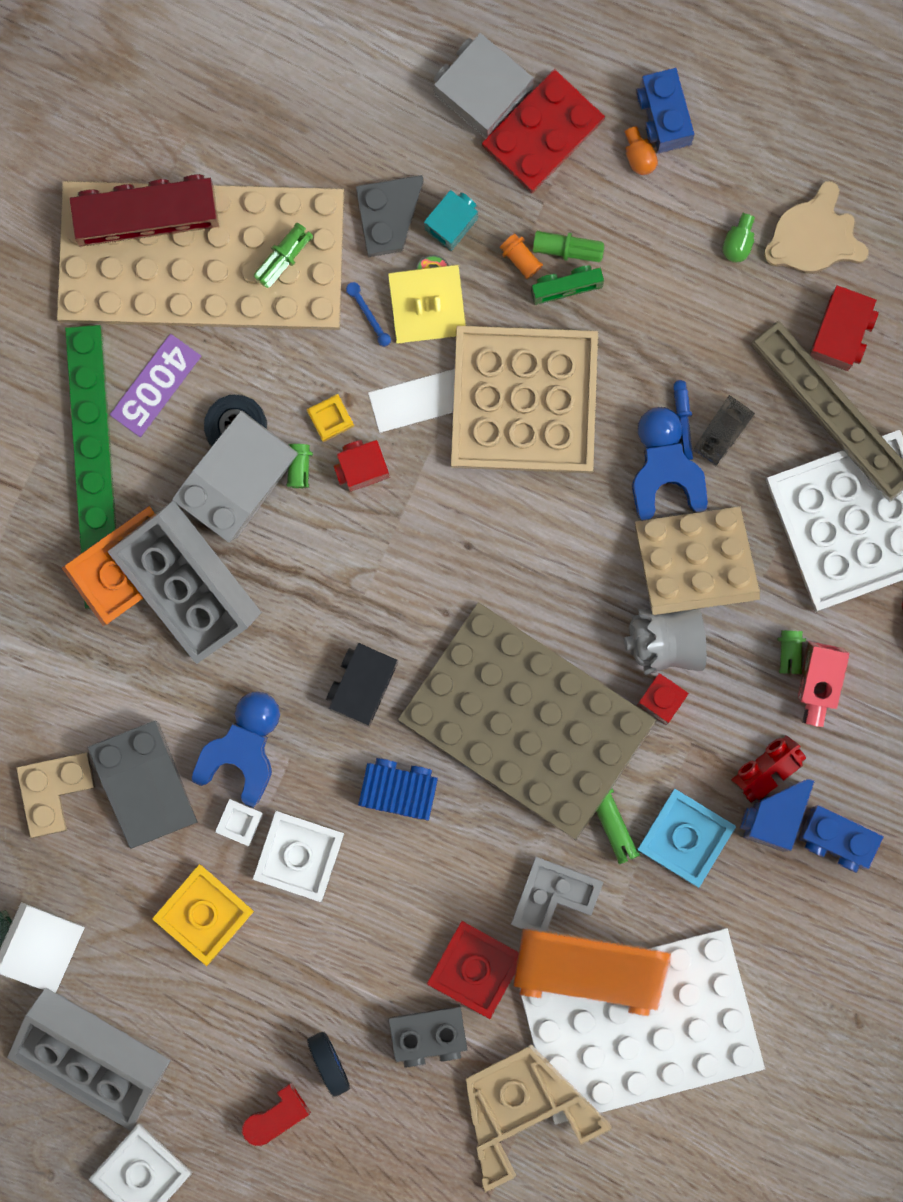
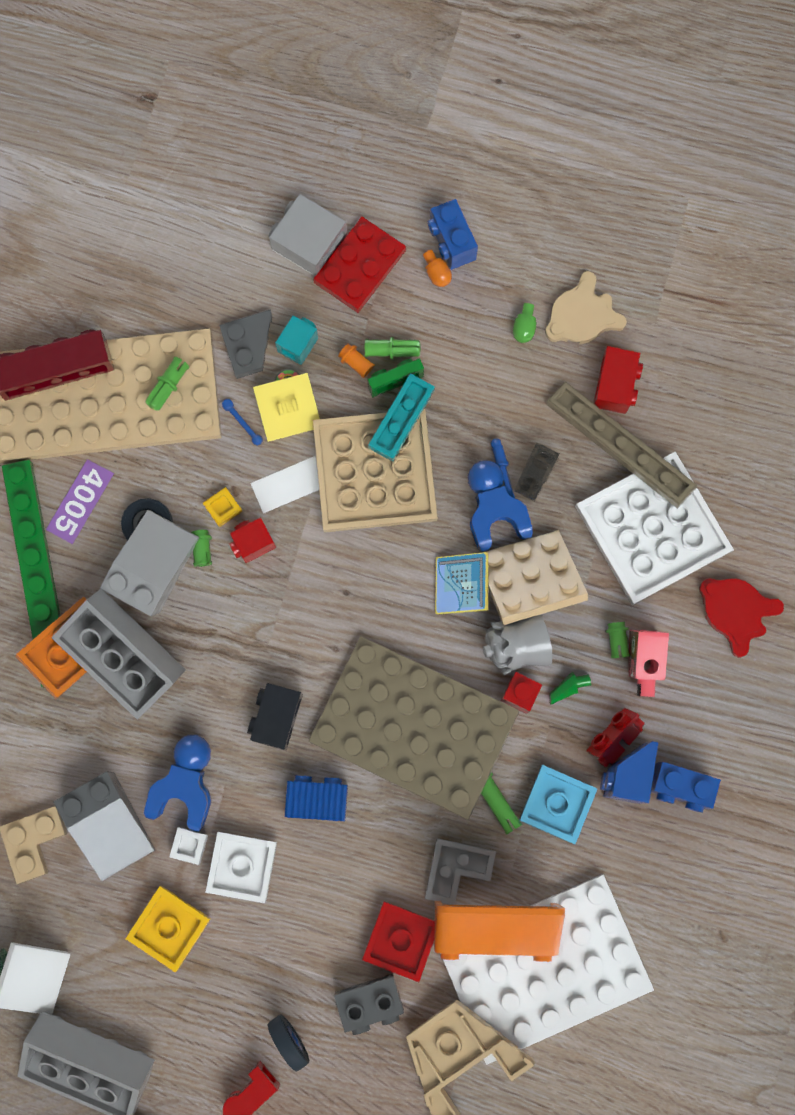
camera: 10 degrees left, 5 degrees down
(567, 339) = (401, 417): none -> teal plate
(611, 556) = (461, 583): none -> piece
(722, 700) = (569, 687): none -> green bar

